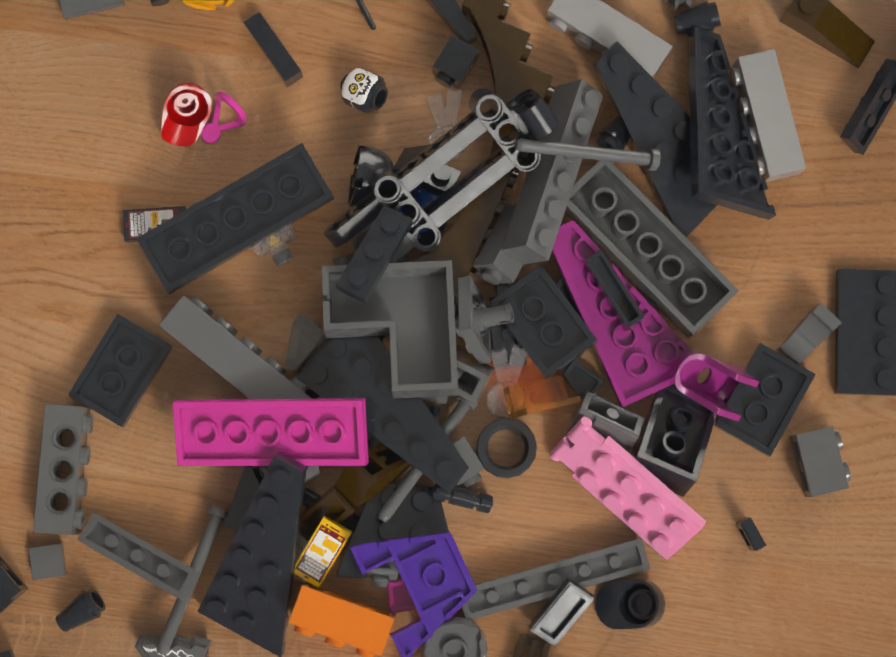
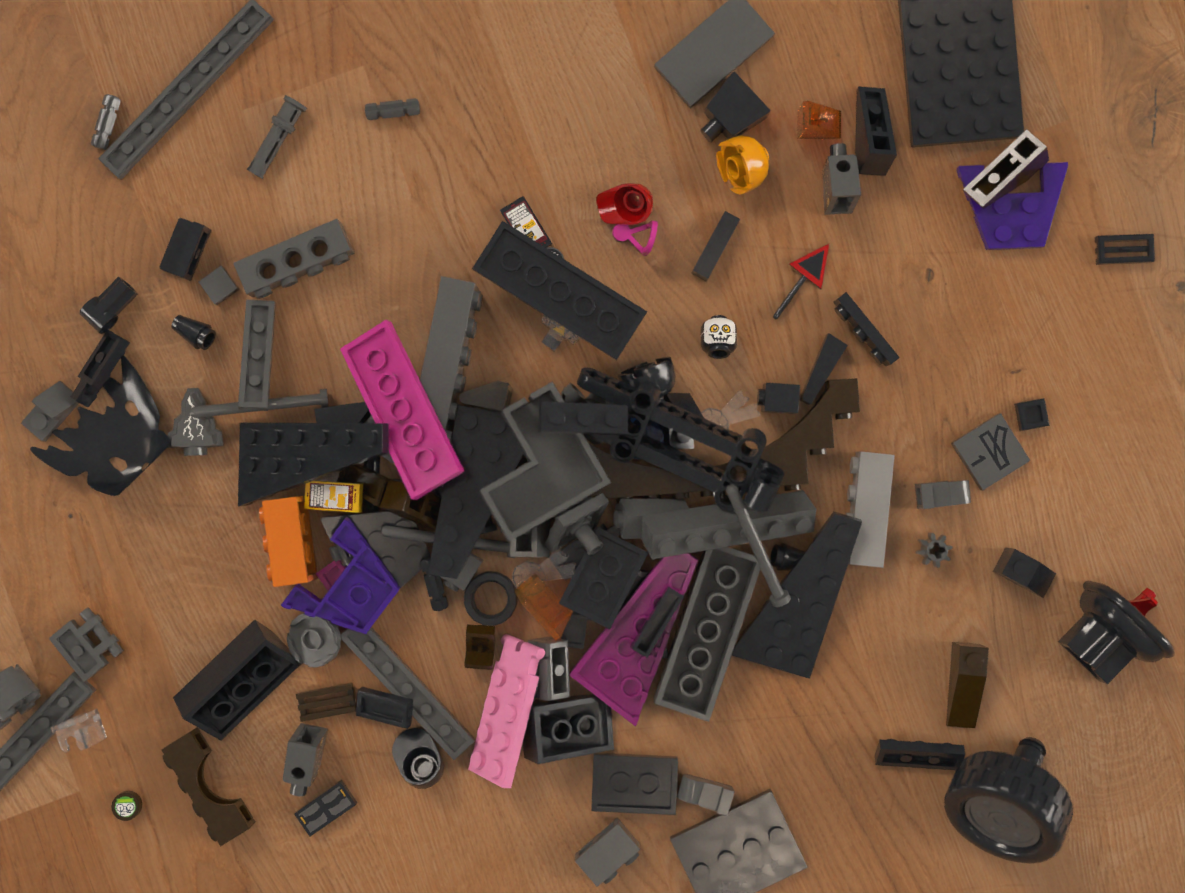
camera: 65 degrees right, 5 degrees up
(120, 370) = (395, 262): black plate -> none
(549, 483) = (480, 647): none -> dark brown bracket
(703, 16) = (919, 577): black cone -> none
(717, 386) = (621, 740): magenta piece -> none
(719, 135) = (829, 643): black wing -> none
(750, 534) = (521, 825): black tile -> none
(768, 115) = (867, 673): light grey brick -> none

